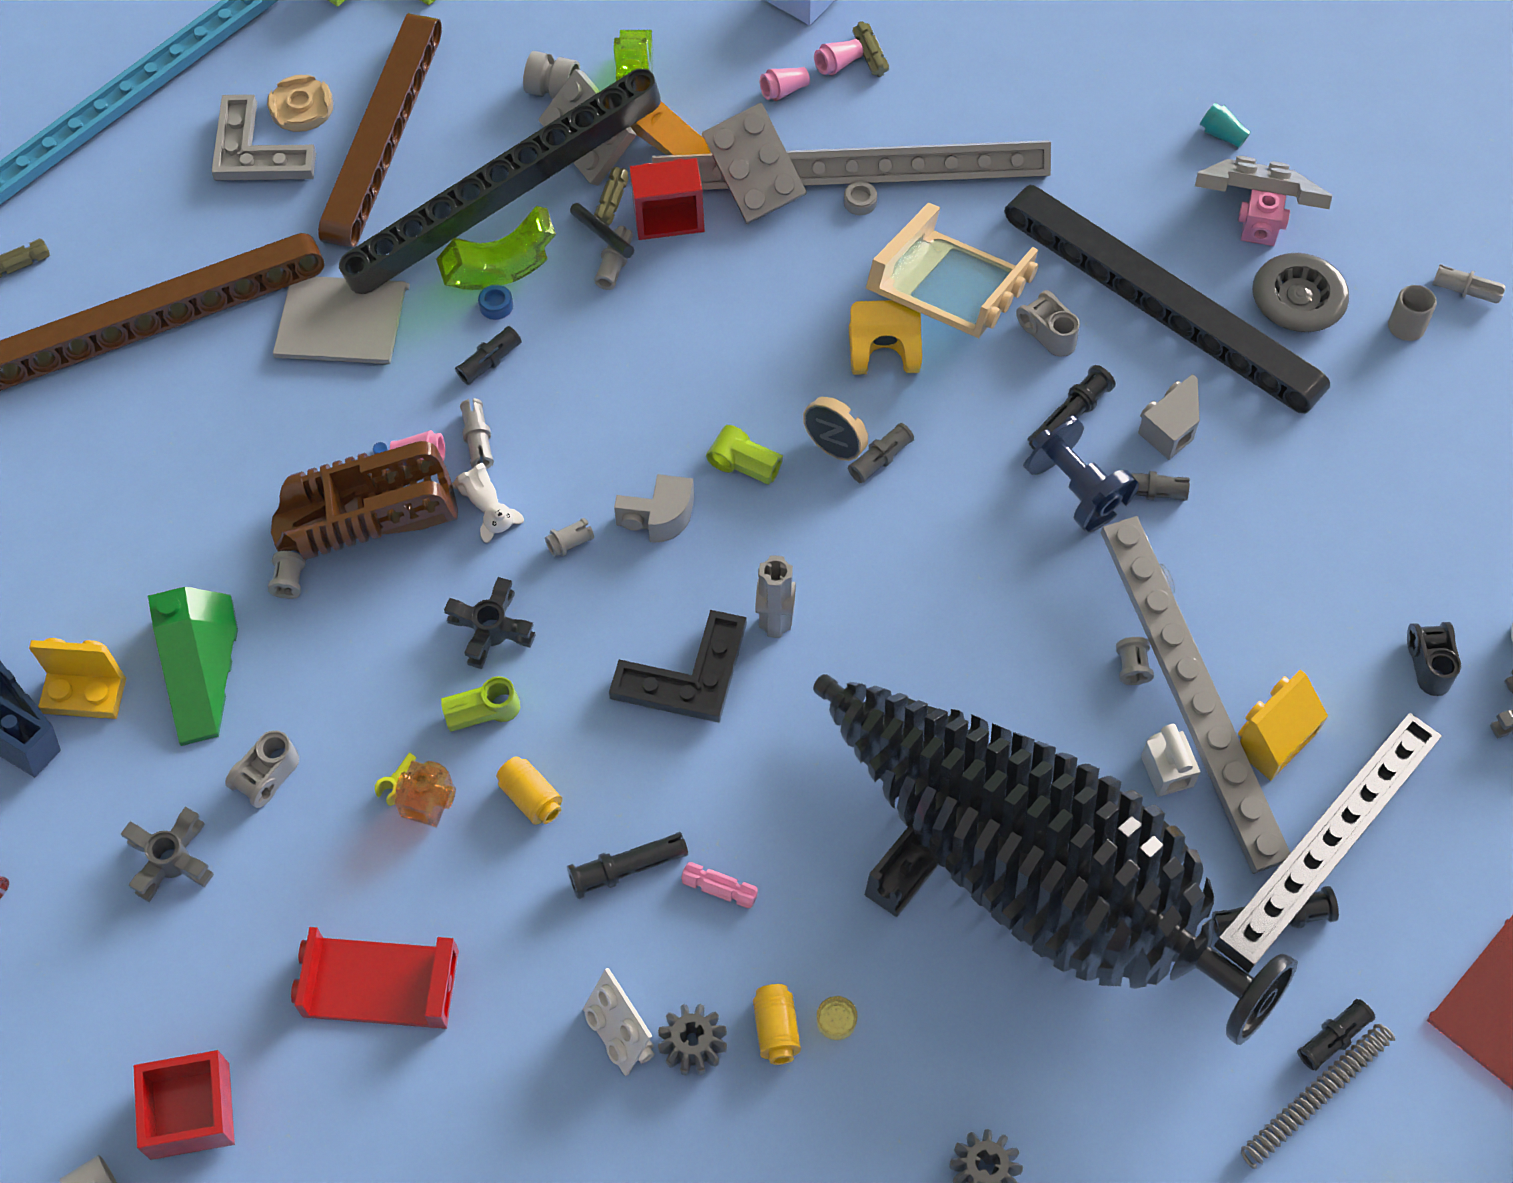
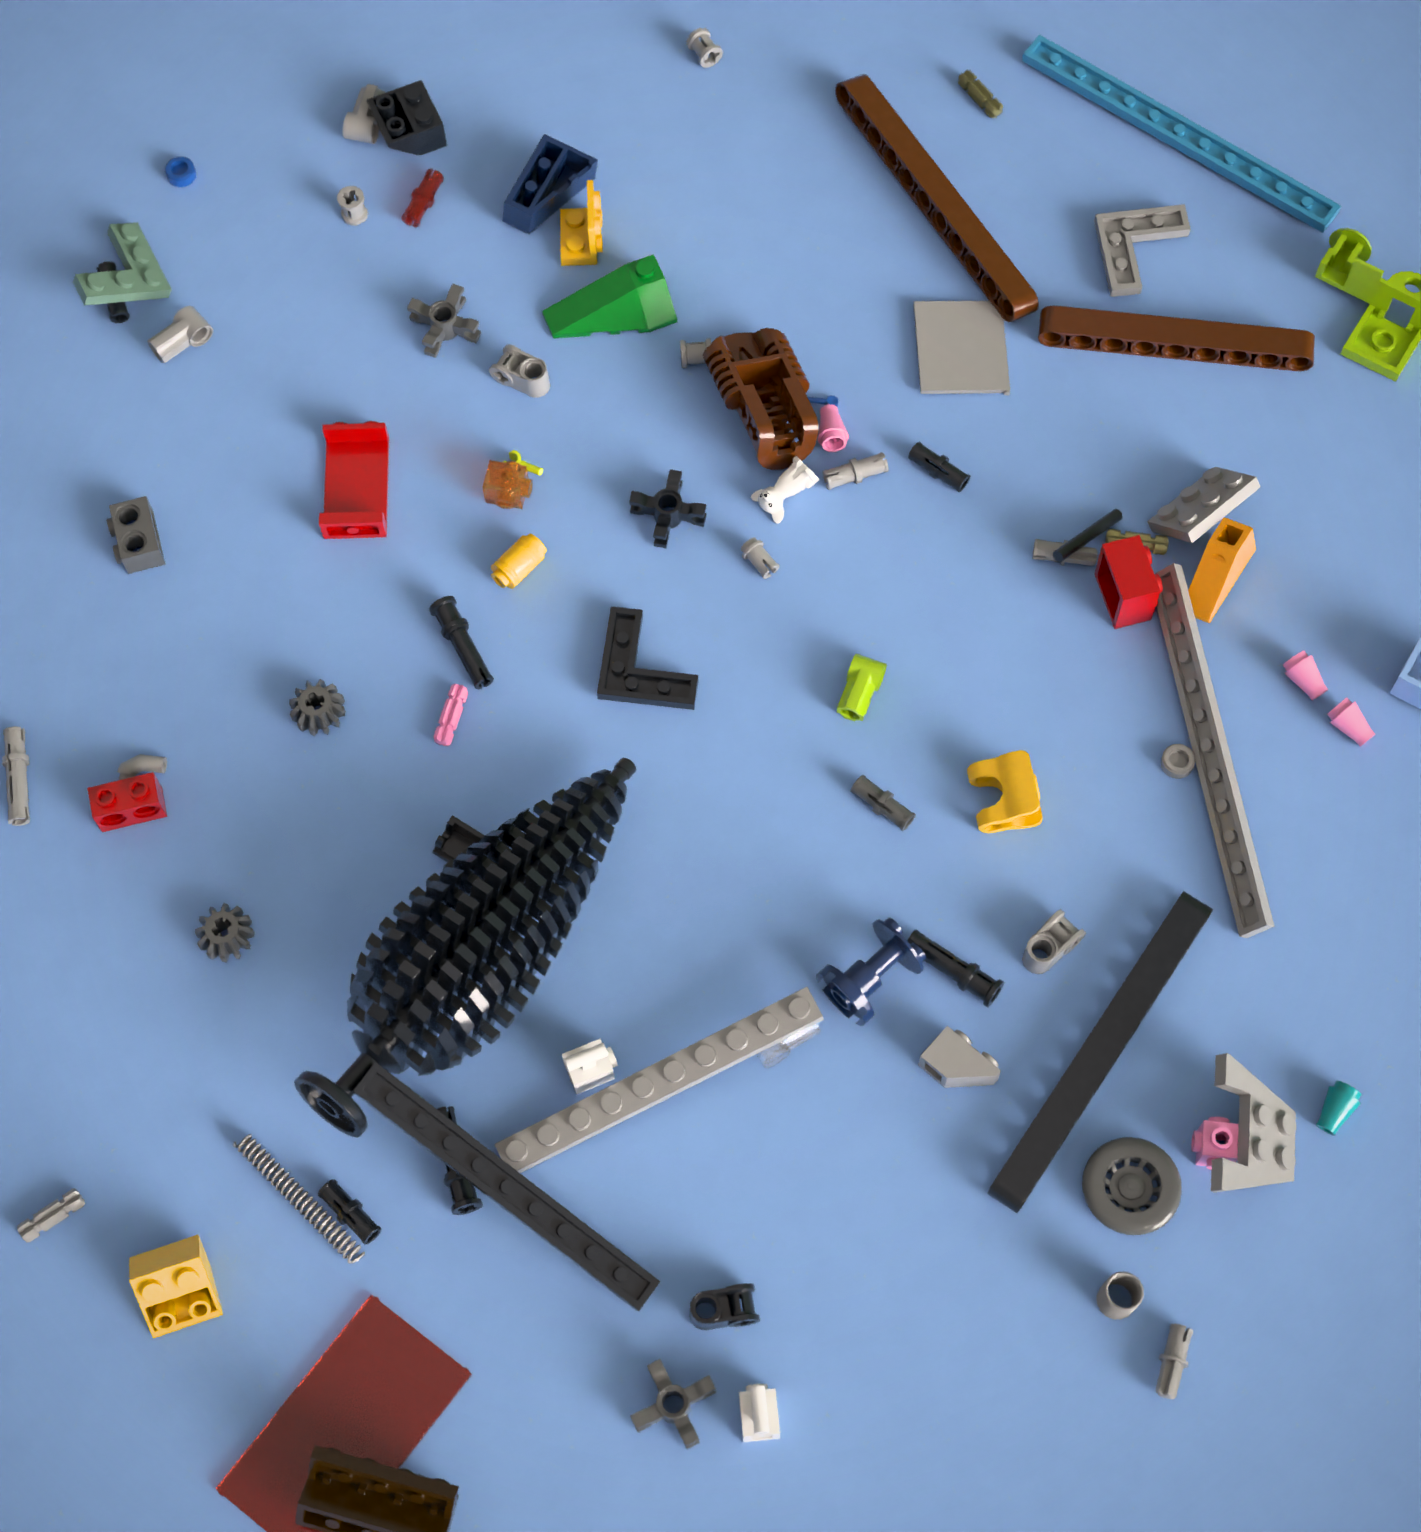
camera: 85 degrees right, 5 degrees up
(183, 1105) = (246, 370): red piece -> none
(300, 103) = (1196, 270): tan tile -> none
(478, 707) = (591, 514): lime piece -> none
(495, 302) = (1000, 464): blue tile -> none
(500, 181) = (1115, 439): black beam -> none
(501, 261) = (1037, 452): clear neon green arch -> none
(546, 75) = (1265, 460): light grey wheel -> none
(618, 1024) = (333, 639): white hinge -> none
(633, 51) = (1290, 537): clear neon green arch -> none
(664, 514) = (793, 630): light grey brick -> none
(754, 163) = (1184, 652): light grey plate -> none
(775, 596) = (700, 714): light grey piece -> none
(776, 1024) = (333, 768): yellow head -> none
(835, 429) = (891, 754): tile -> none
(837, 1018) = (345, 815): clear yellow tile -> none
(871, 49) = (1369, 752): olive axle -> none
(947, 276) = (1081, 838): panel -> none
(1134, 660) = (687, 1032): light grey bush -> none
(1162, 486) = (880, 1046): dark grey pin -> none
(1282, 725) = (628, 1158): yellow slope -> none

